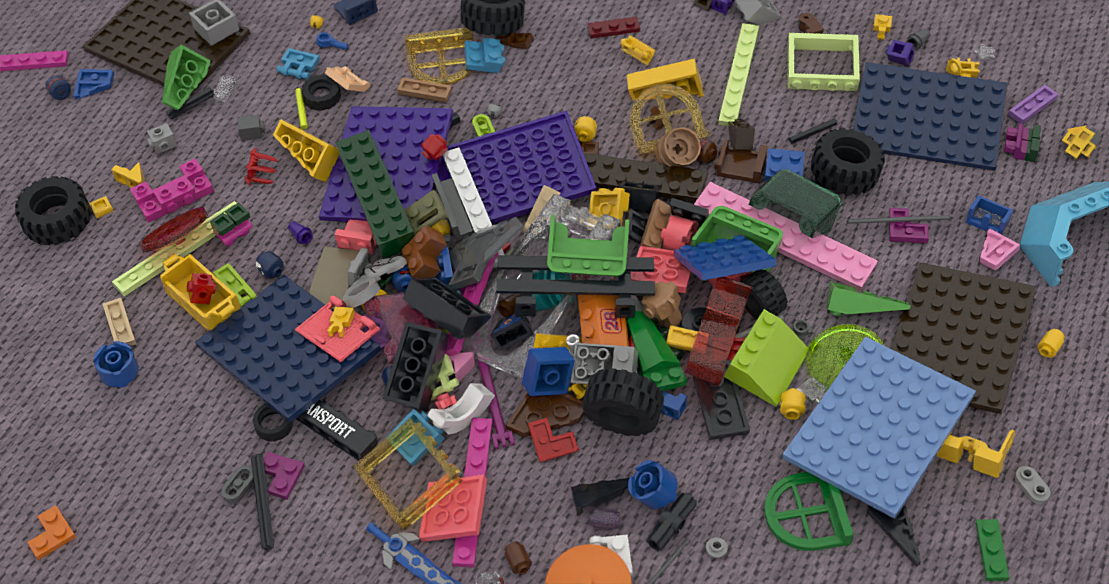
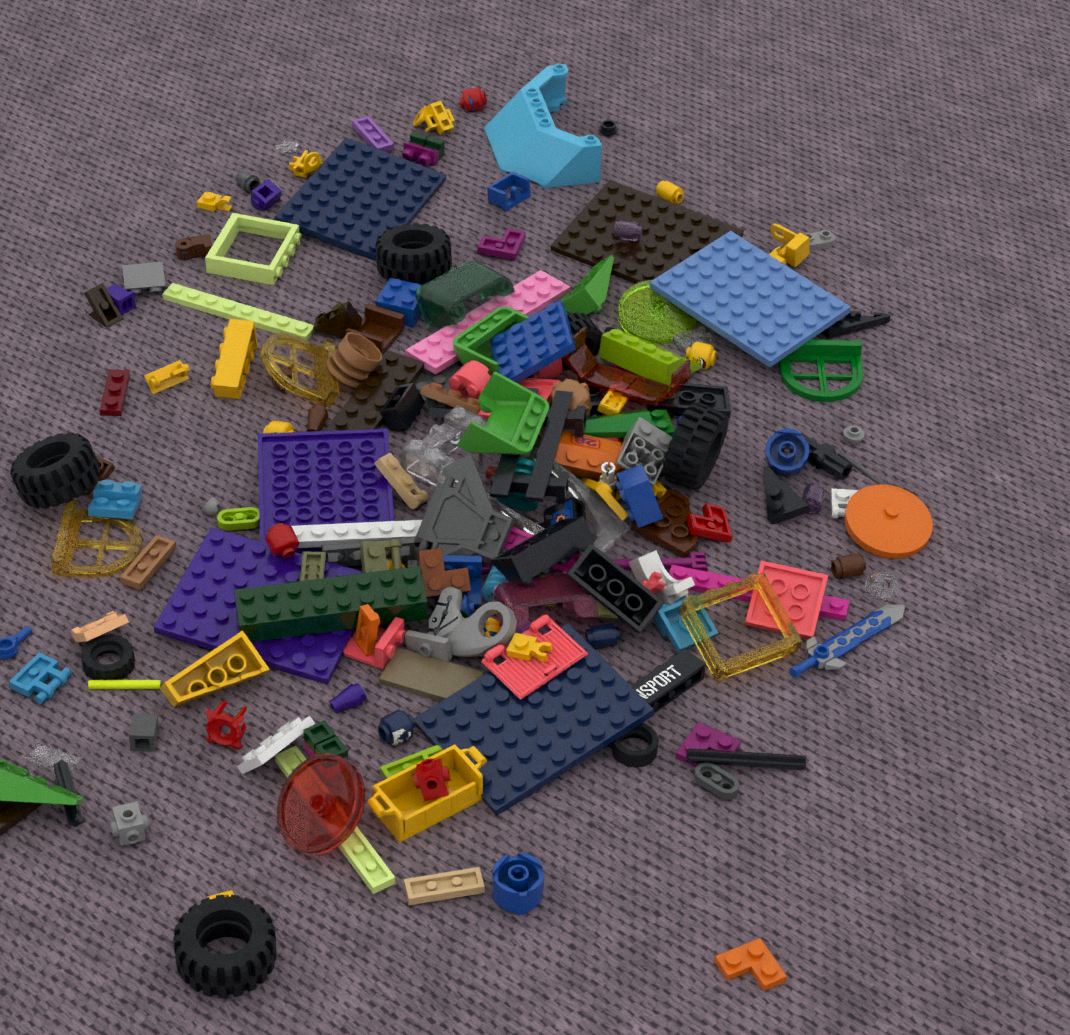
camera: 85 degrees left, 10 degrees down
(128, 177) = (188, 861): yellow slope -> none
(174, 194) = (238, 816): dark pink bracket -> none
(238, 196) = (274, 744): none -> white plate
(354, 219) = (367, 629): none -> orange plate
(409, 174) = (313, 565): none -> olive plate
(609, 202) = (413, 423): yellow plate -> none
(613, 148) = (317, 418): none -> reddish brown cone
(689, 211) = (453, 363): black plate -> none
(800, 136) = (346, 278): black bar -> none
(898, 219) = (497, 241): dark grey axle -> none
(950, 310) = (628, 230): none -> clear purple brick
(992, 550) = (878, 276): green plate -> none
(997, 250) = (550, 197): bright pink wing -> none

